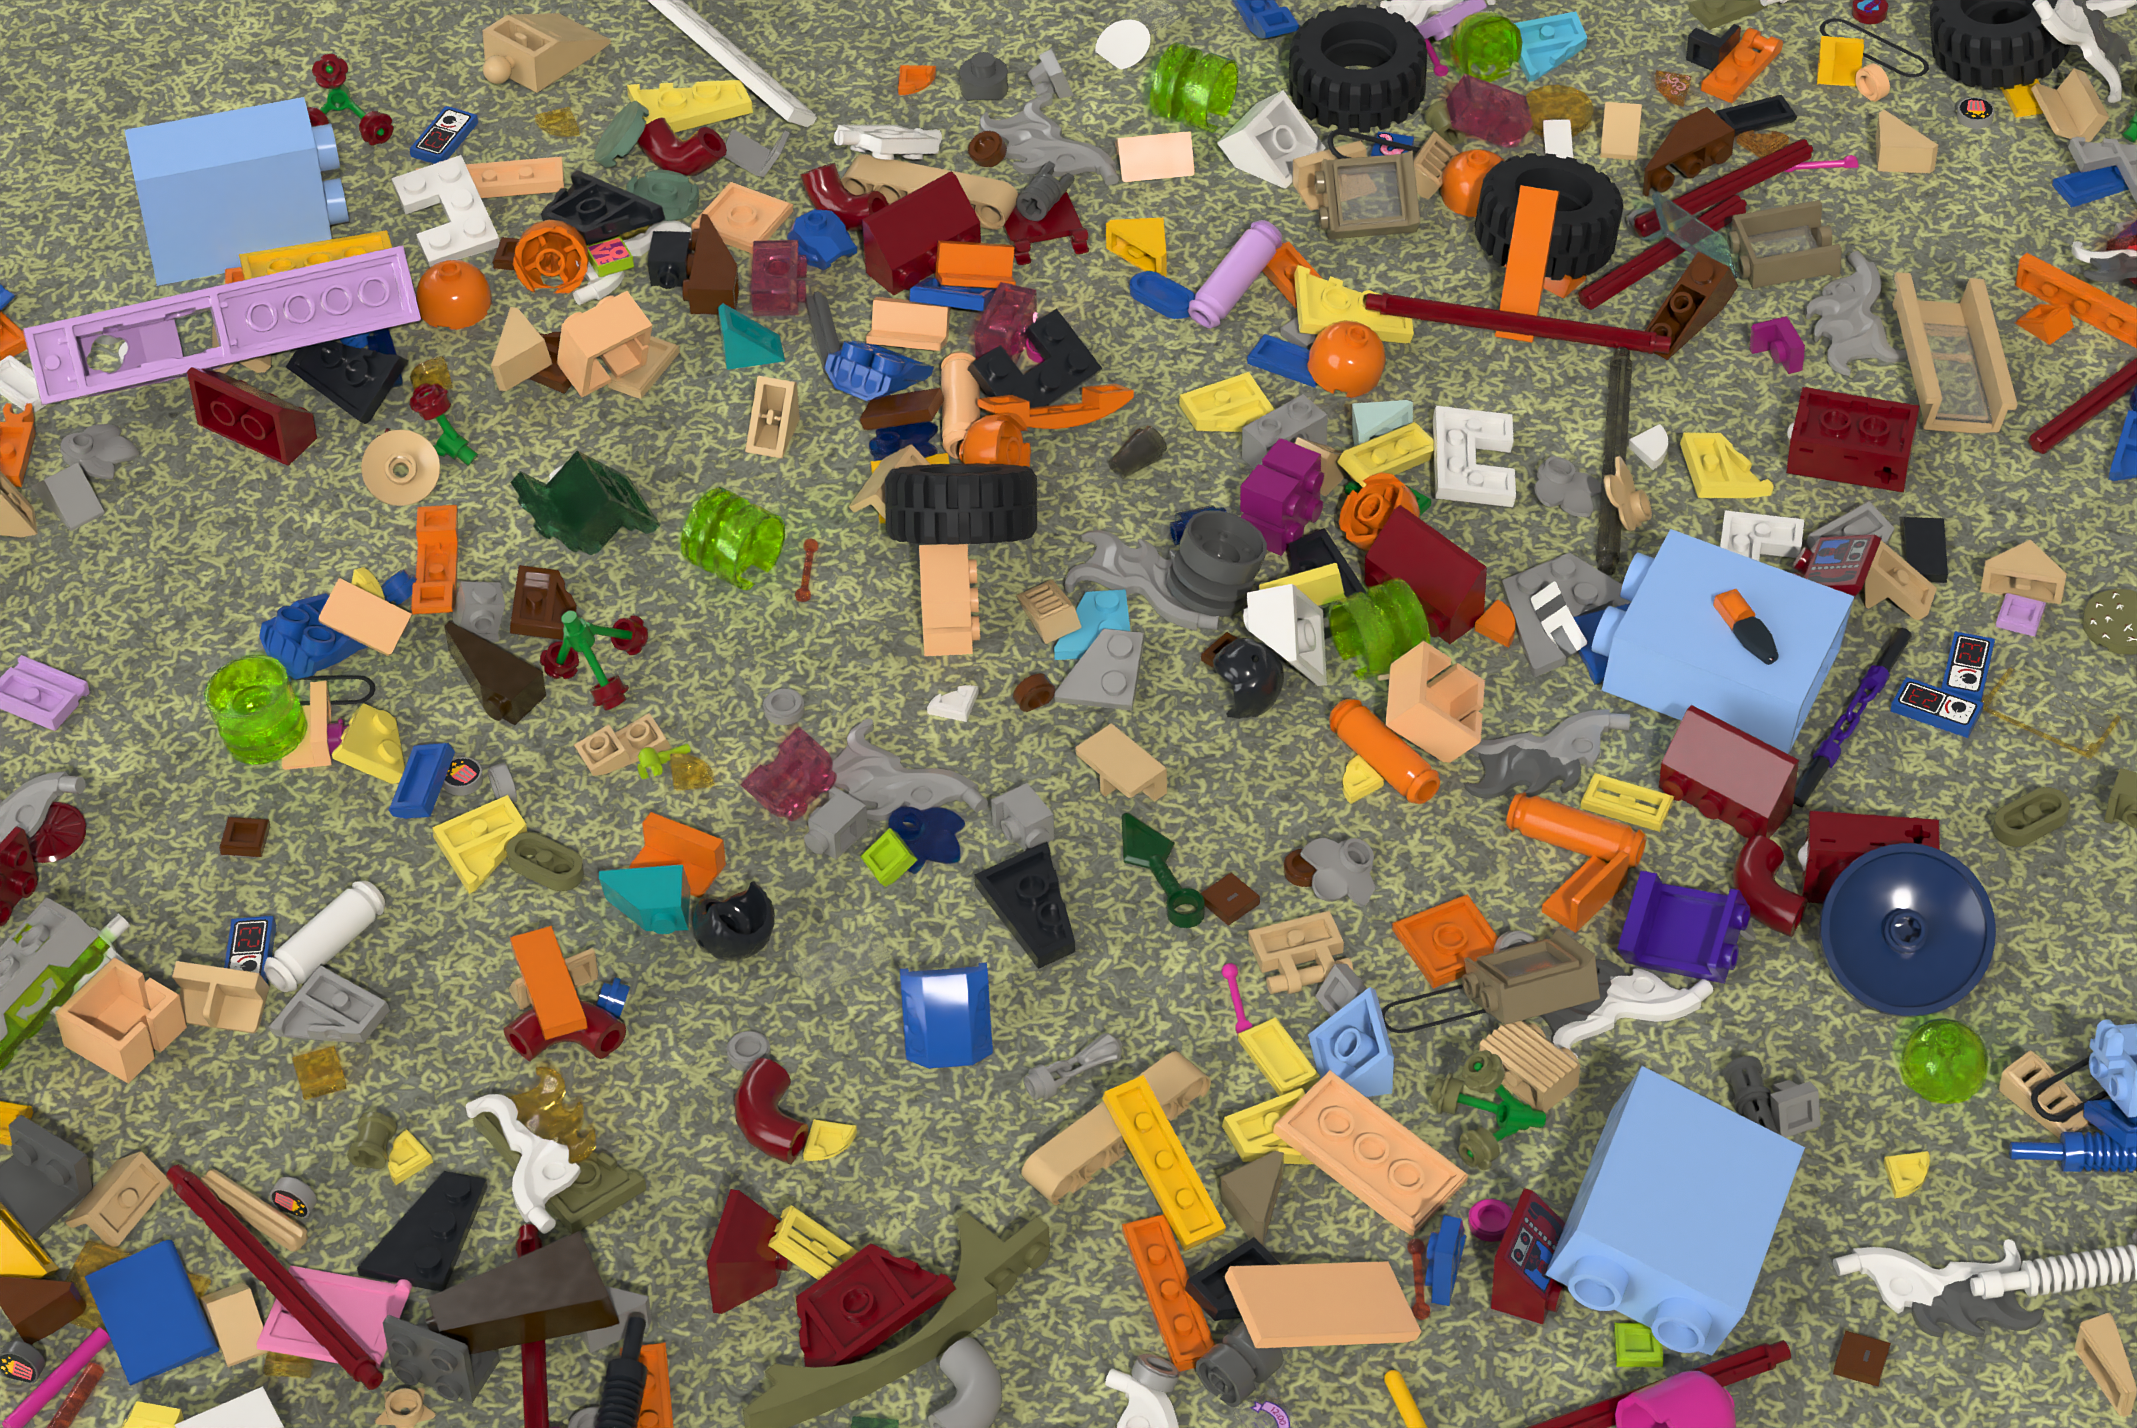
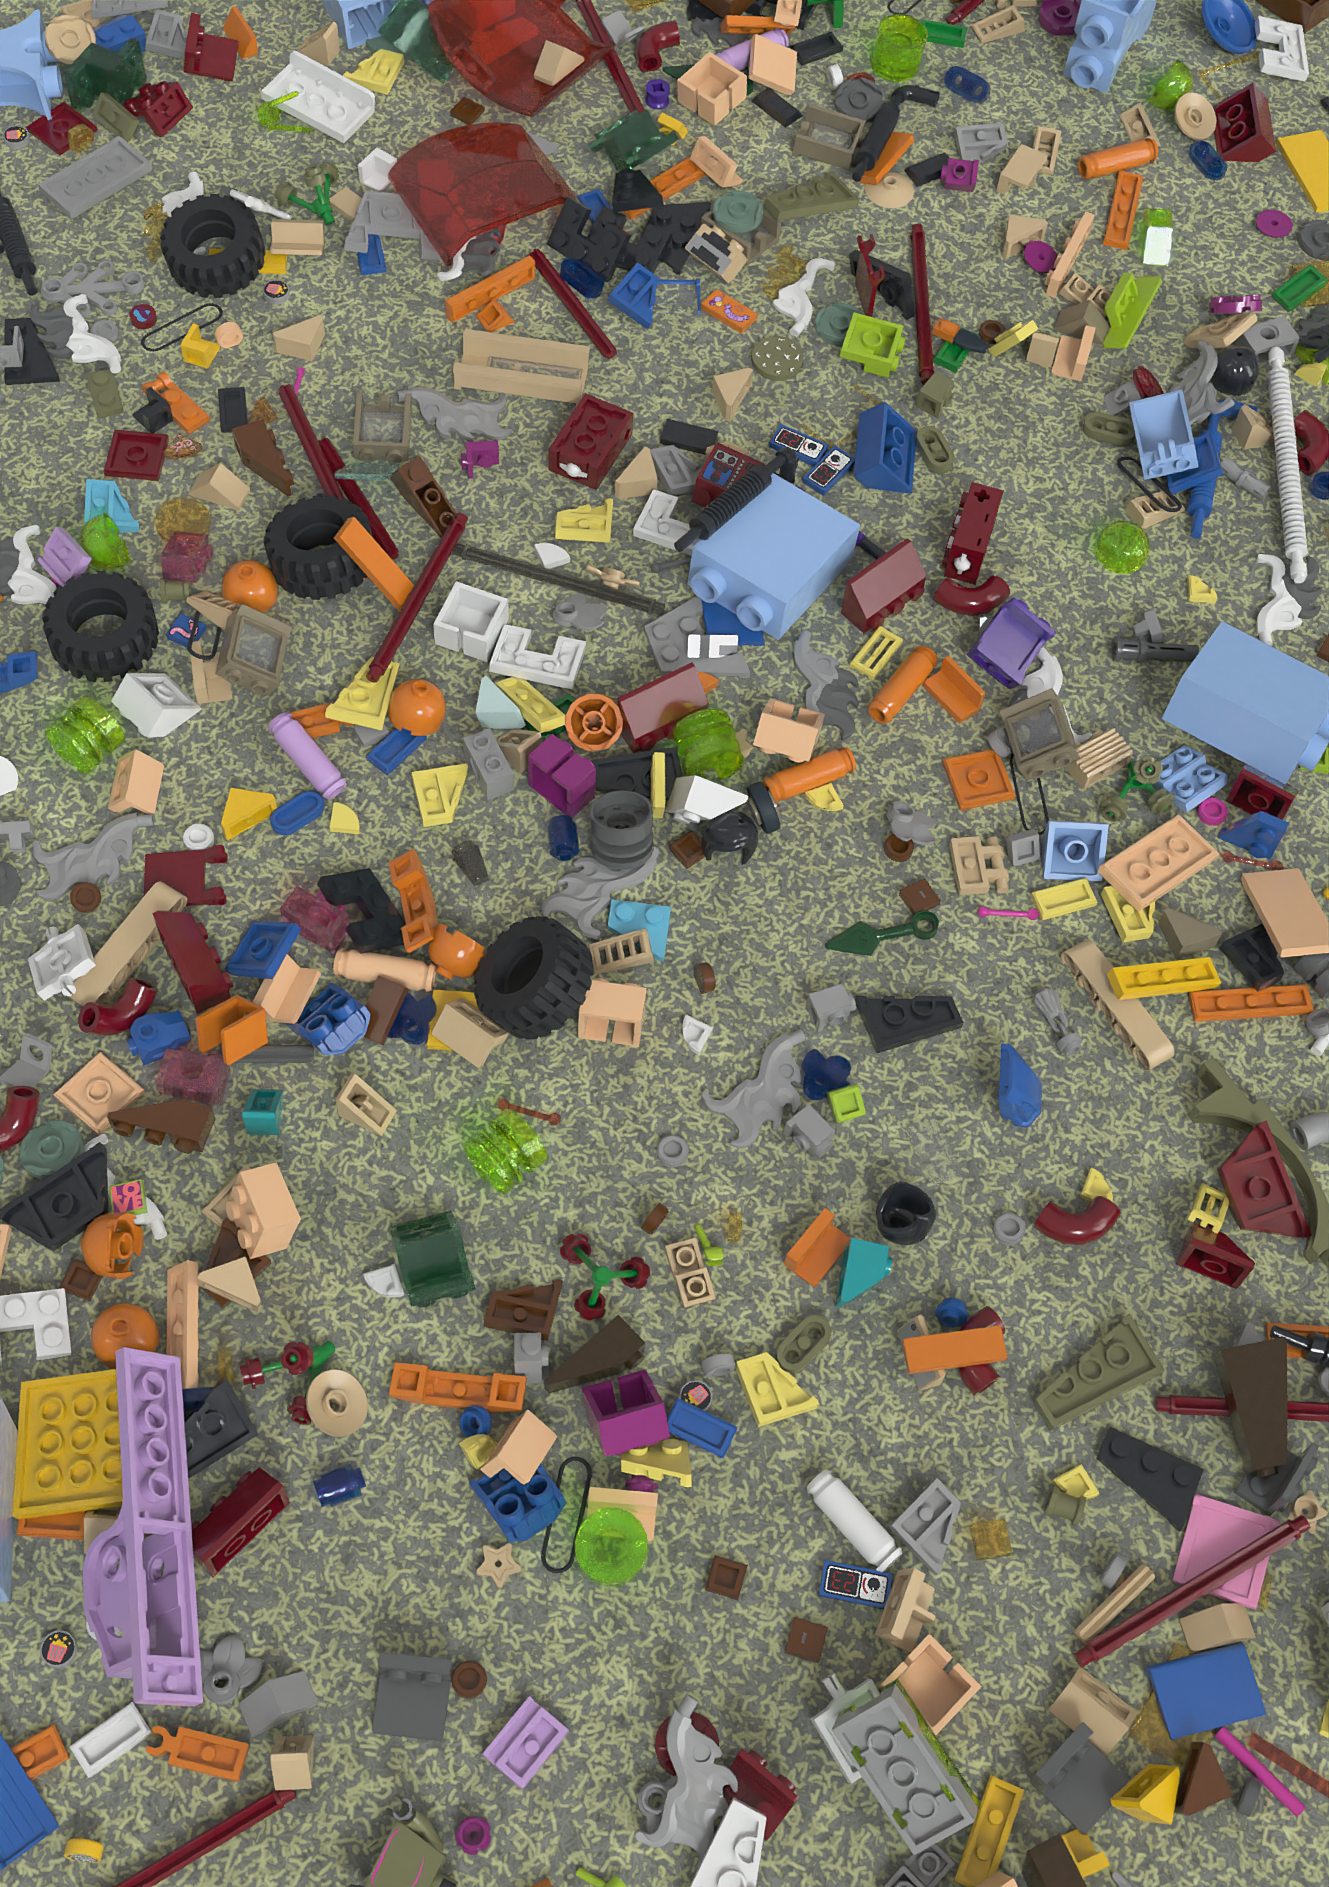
camera: 85 degrees left, 15 degrees up
(82, 594) = (412, 1696): none -> dark grey bracket
(105, 640) = (469, 1679): none -> reddish brown tile
(178, 918) = (806, 1640): none -> reddish brown tile
(236, 647) = (500, 1573): none -> tan plate
(307, 490) = (339, 1485): none -> clear blue brick
(417, 693) = (640, 1421): none -> magenta piece
(452, 341) = (183, 1320): none -> light nougat plate
(546, 1139) = (1090, 1374): piece -> none
(669, 258) = (142, 1153): black brick -> none
(684, 697) = (655, 1218): none -> reddish brown tile
(793, 778) = (758, 1155): clear pink cylinder -> none
(833, 283) = (233, 1028): none -> orange piece
(974, 264) = (237, 929): orange panel -> none
(1042, 193) = (161, 865): dark grey hinge -> none
(1095, 220) = (198, 837): none -> white tile
(1106, 672) = (694, 926): light grey wing -> none
(1123, 764) = (795, 933): tan panel -> none
(1166, 335) = (344, 820): none -> light yellow tile
(1304, 701) = (763, 807): none -> black wheel
(1497, 374) = (471, 621): none -> white piece
(1534, 1165) = (1189, 778): none -> light blue slope
(1558, 138) = (219, 529): white sticker -> none
(1642, 50) = (136, 455): none -> dark red tile
(1745, 626) = (789, 530): piece -> none
(1786, 561) = (738, 496): none -> black piece
(1820, 499) = (638, 477): none -> tan slope
(1907, 930) = (1038, 529): dark blue dish -> none
(1995, 758) = (885, 450): none -> blue slope
(2020, 614) = (758, 406): lavender tile -> none

